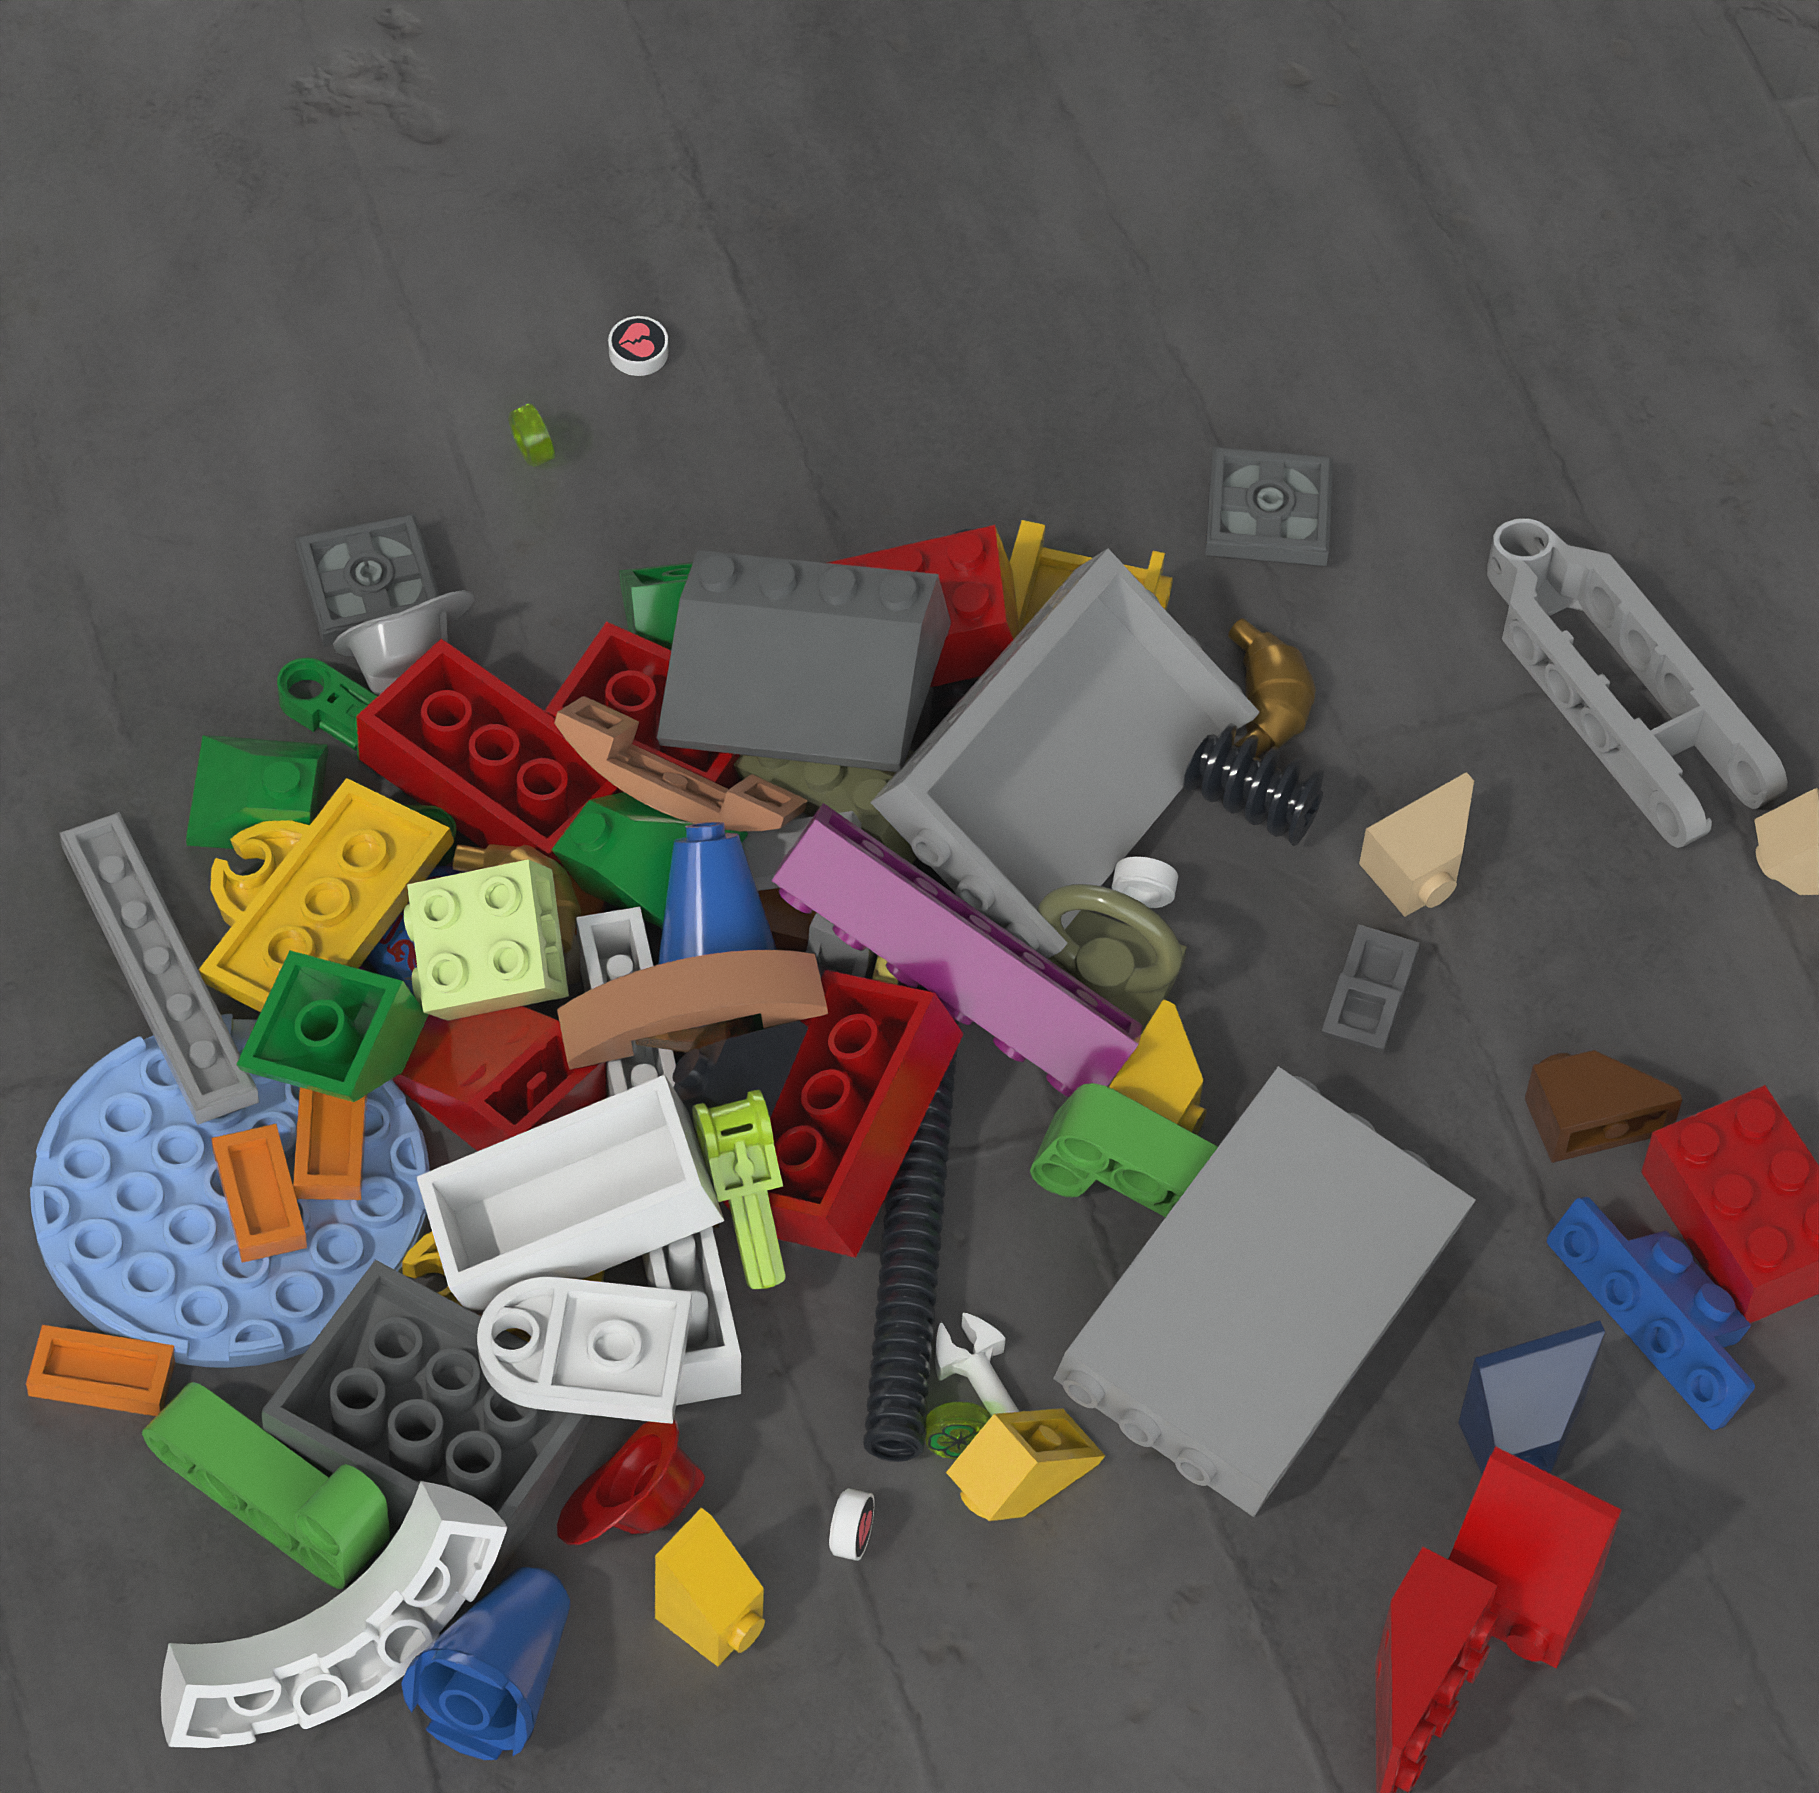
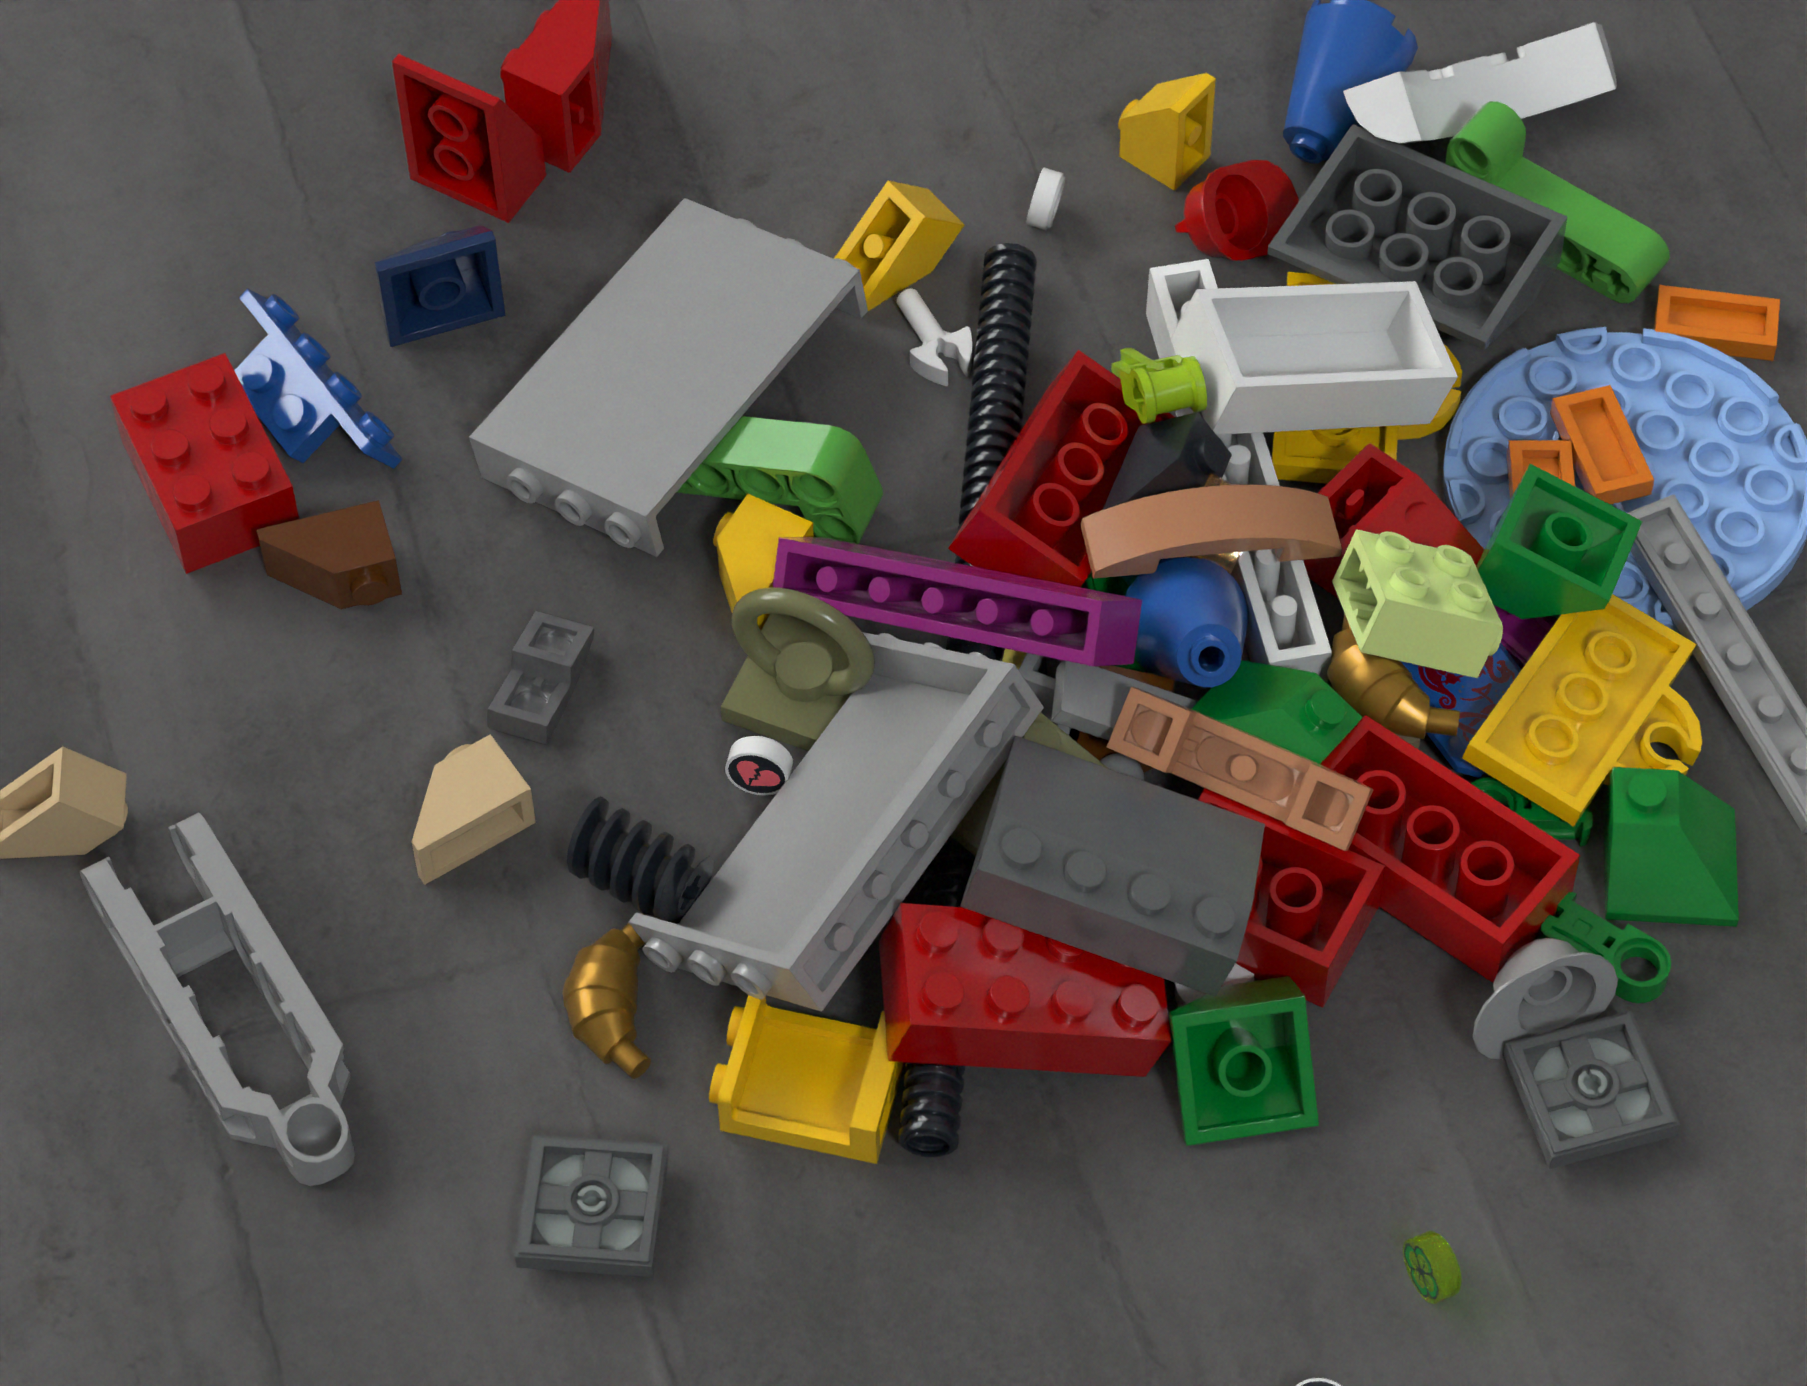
camera: 175 degrees left, 0 degrees up
(589, 1347) = (1285, 240): white plate -> none
(953, 1427) = (952, 271): clear neon green tile -> none

